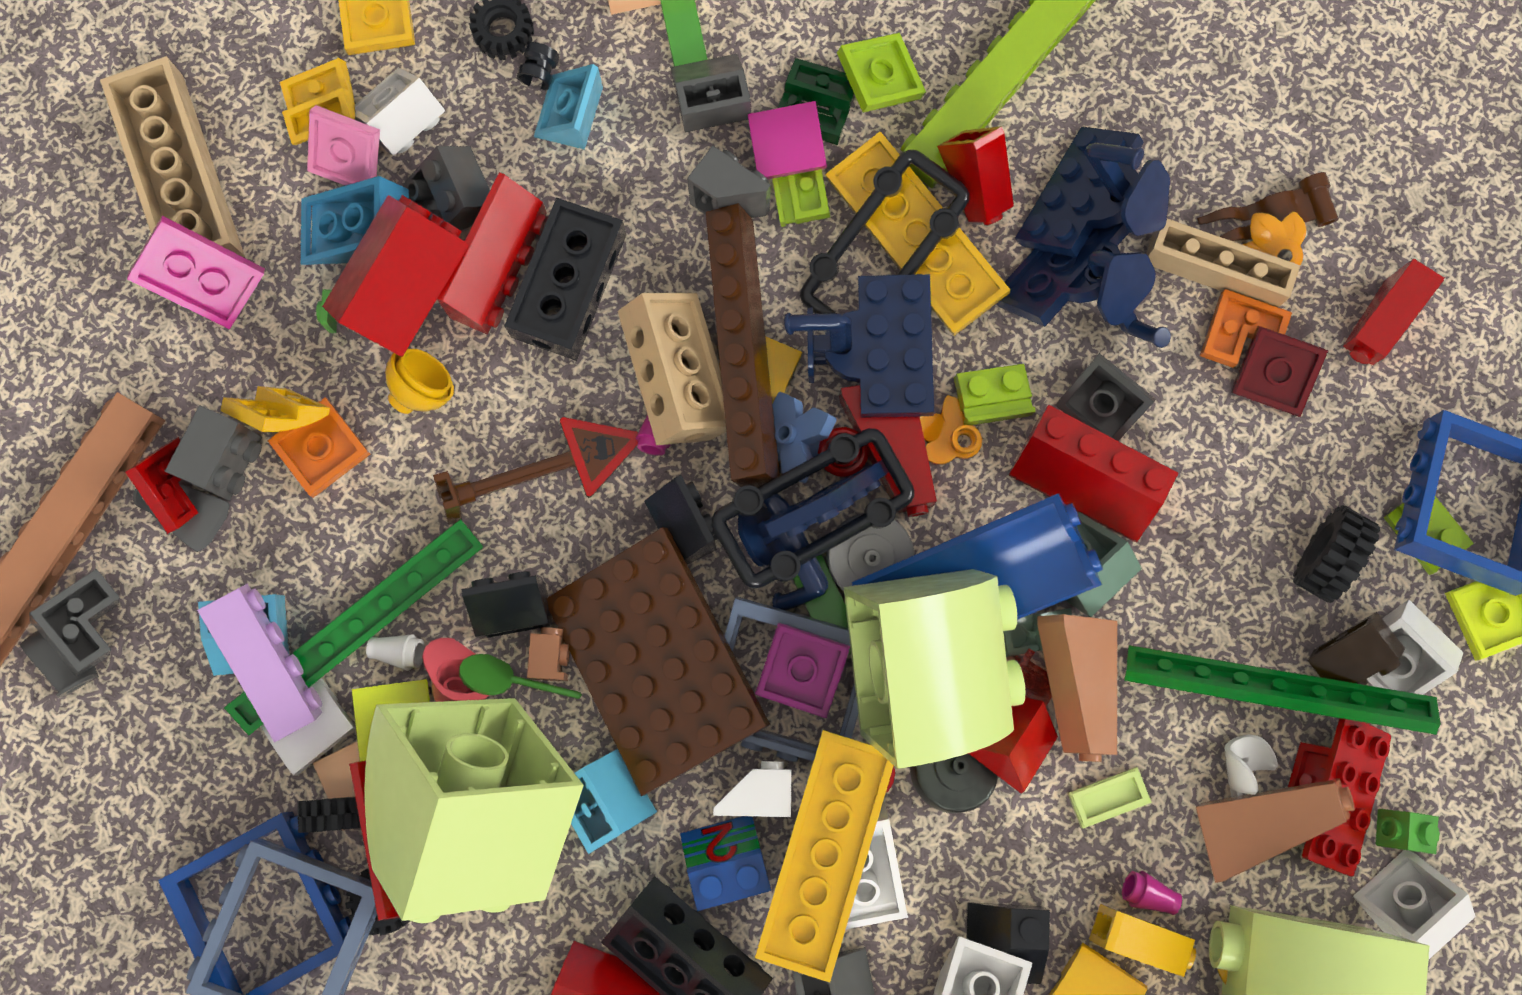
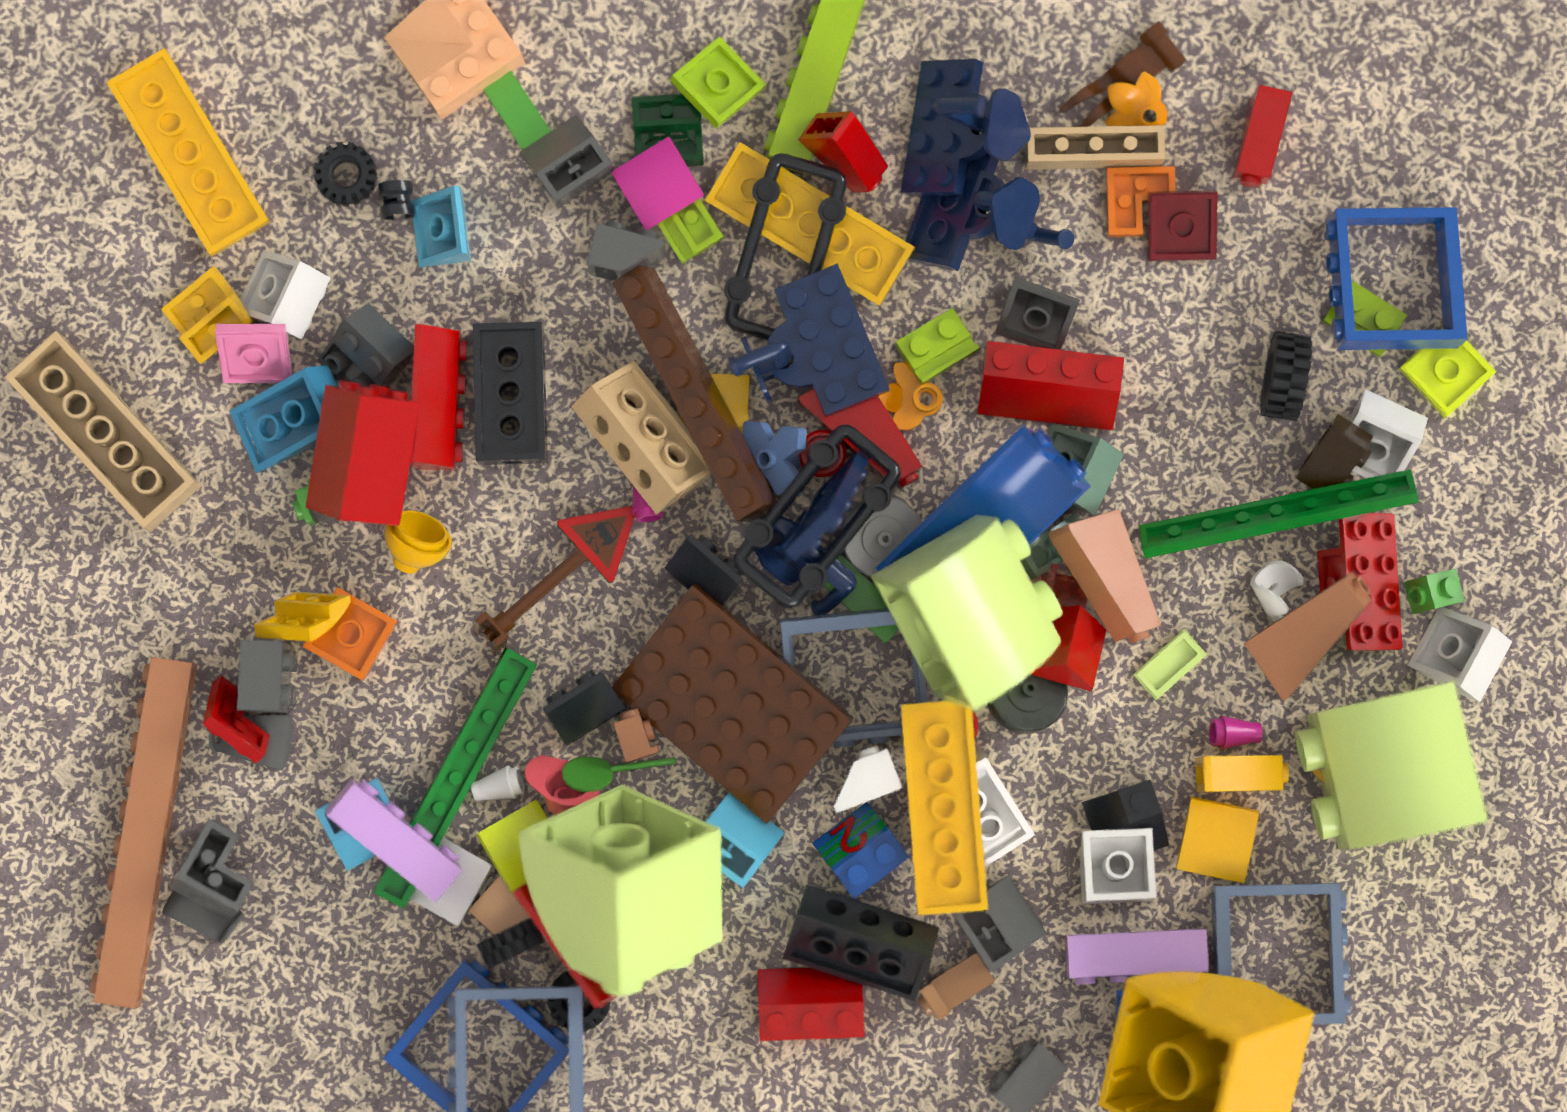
camera: 25 degrees left, 5 degrees up
(195, 272) = (177, 522): plate -> none
(802, 670) = (863, 660): magenta plate -> none

